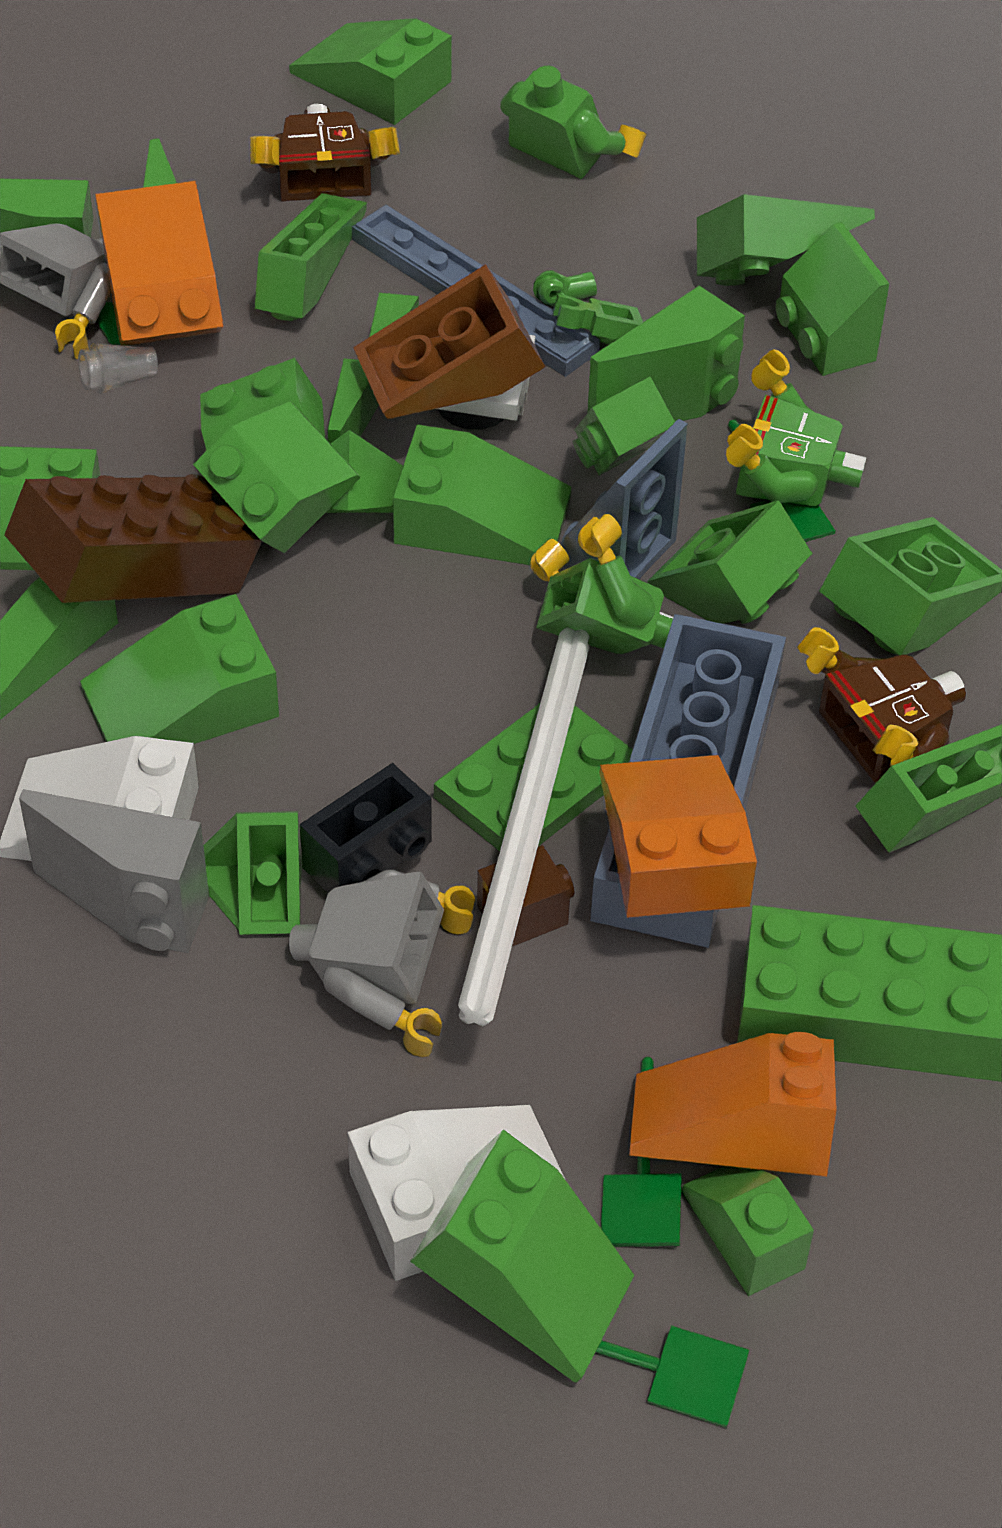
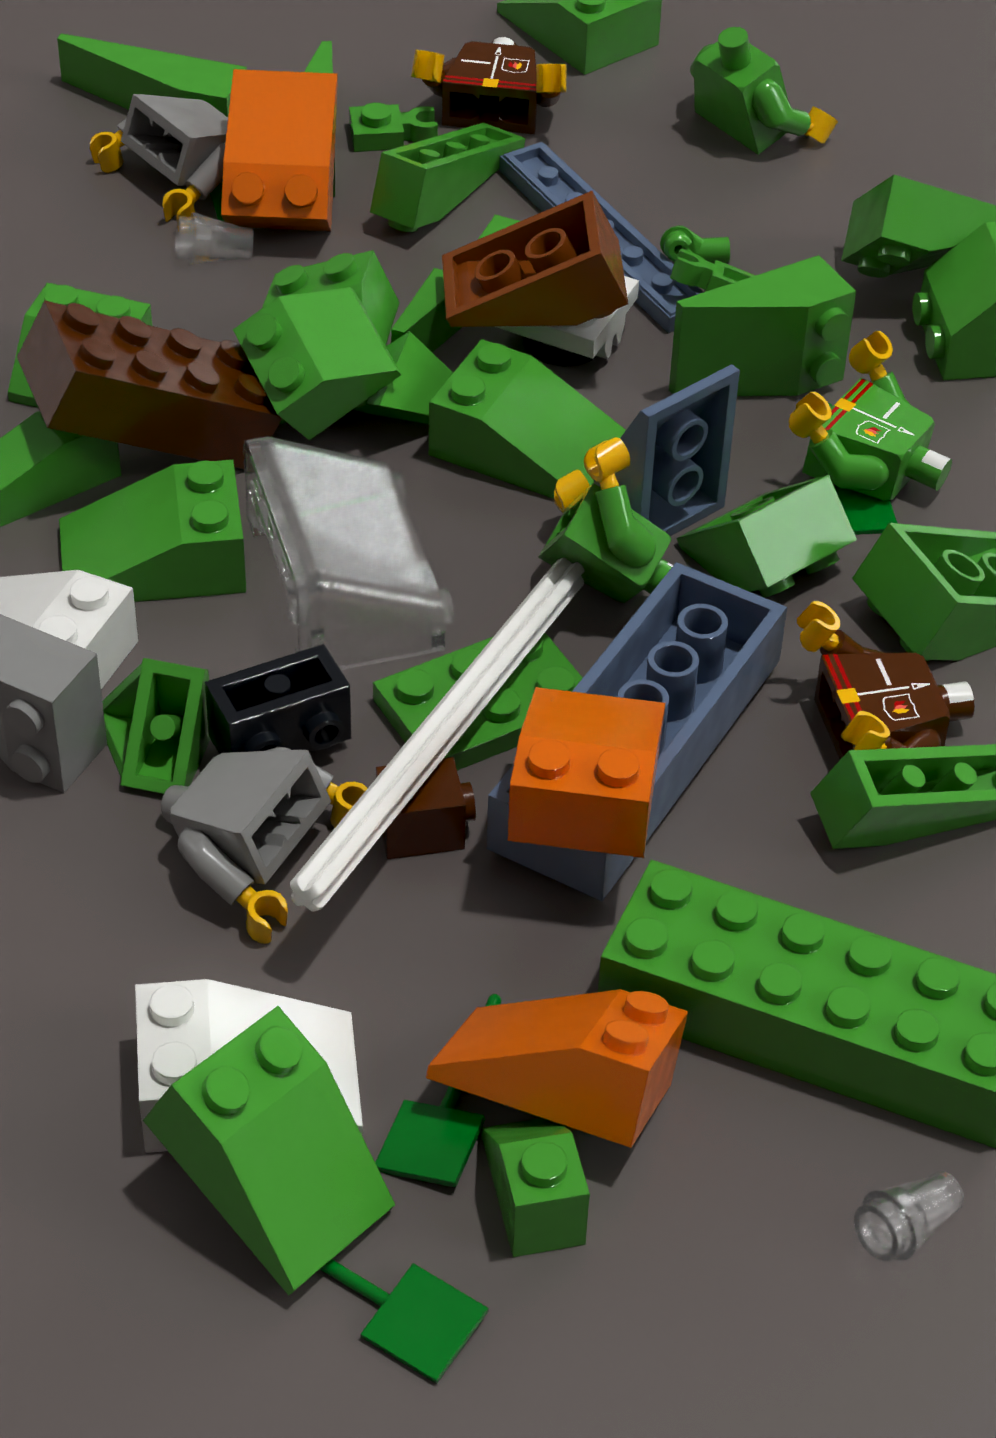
camera: 15 degrees right, 5 degrees down
(232, 216) = (386, 128): none -> bright green plate
(366, 662) = (345, 552): none -> clear windscreen
(622, 427) = (681, 359): bright green brick -> none

